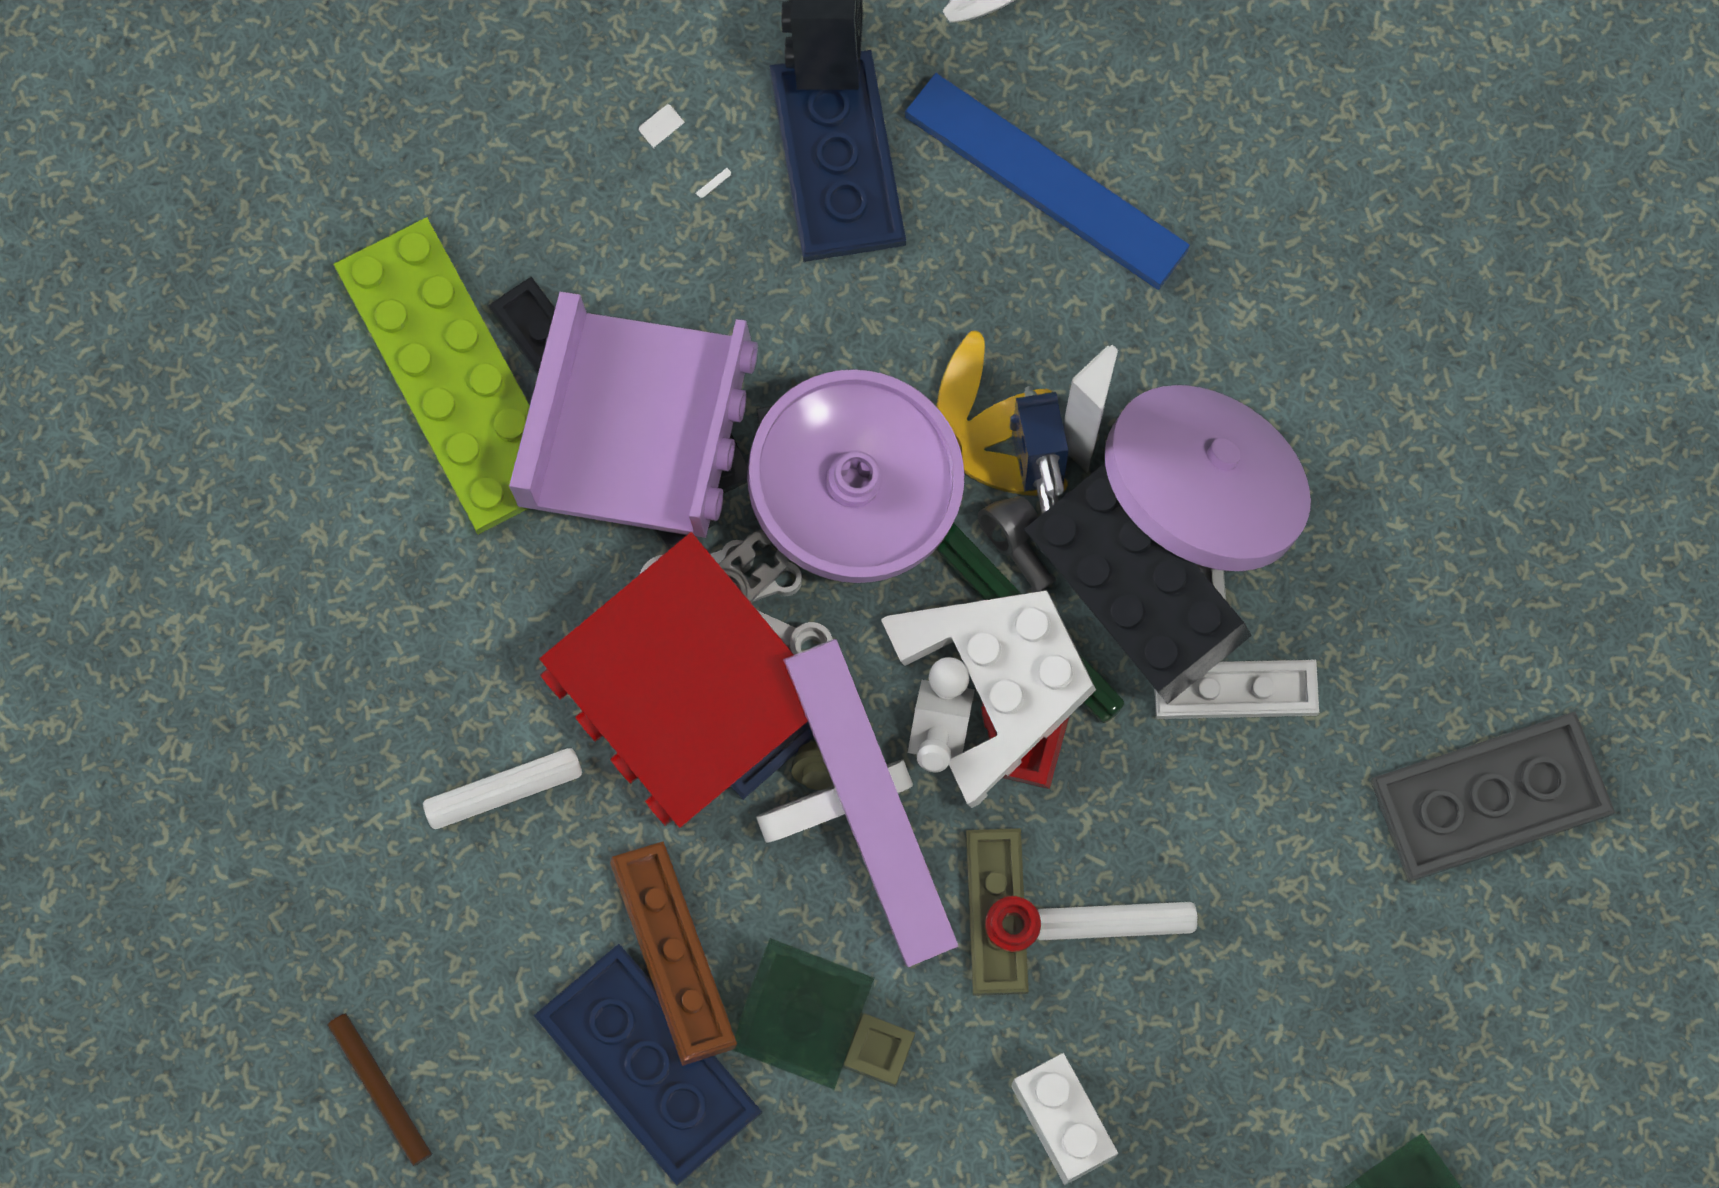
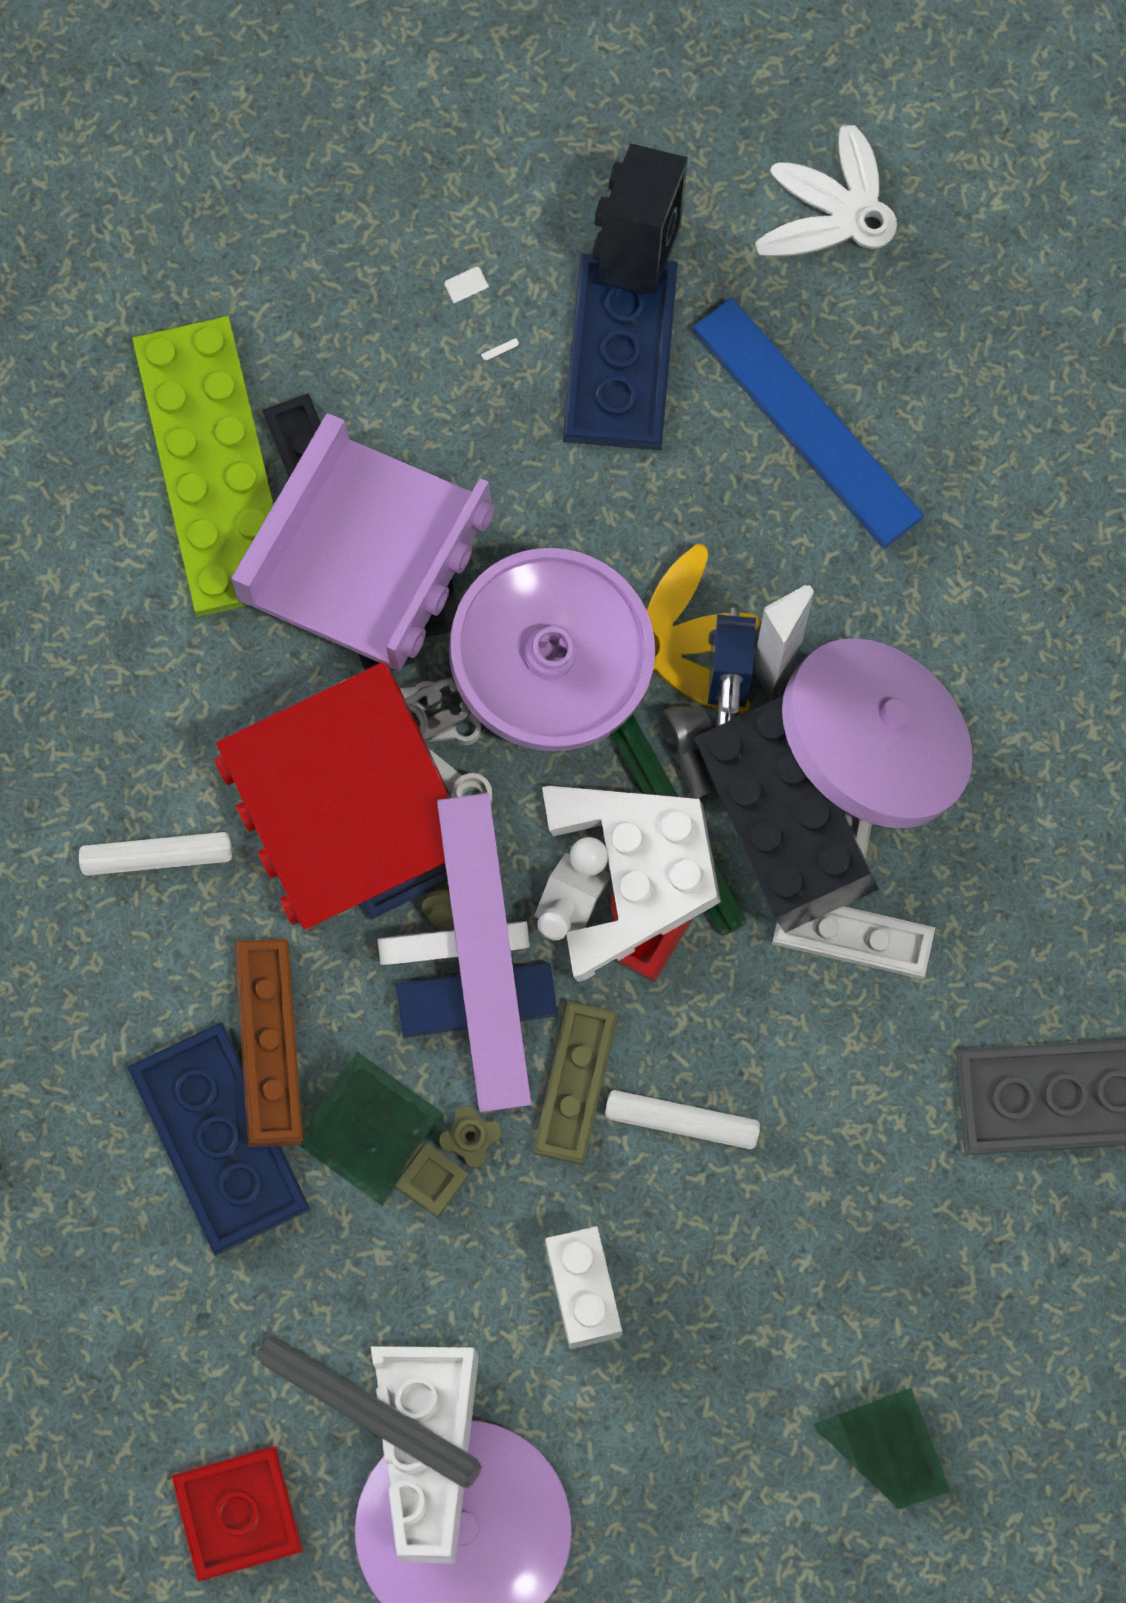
camera: 15 degrees right, 0 degrees up
(838, 866) = (439, 1003): none -> dark blue tile
(912, 1009) = (474, 1151): none -> olive plate
(1016, 907) = (590, 1081): red plate -> none

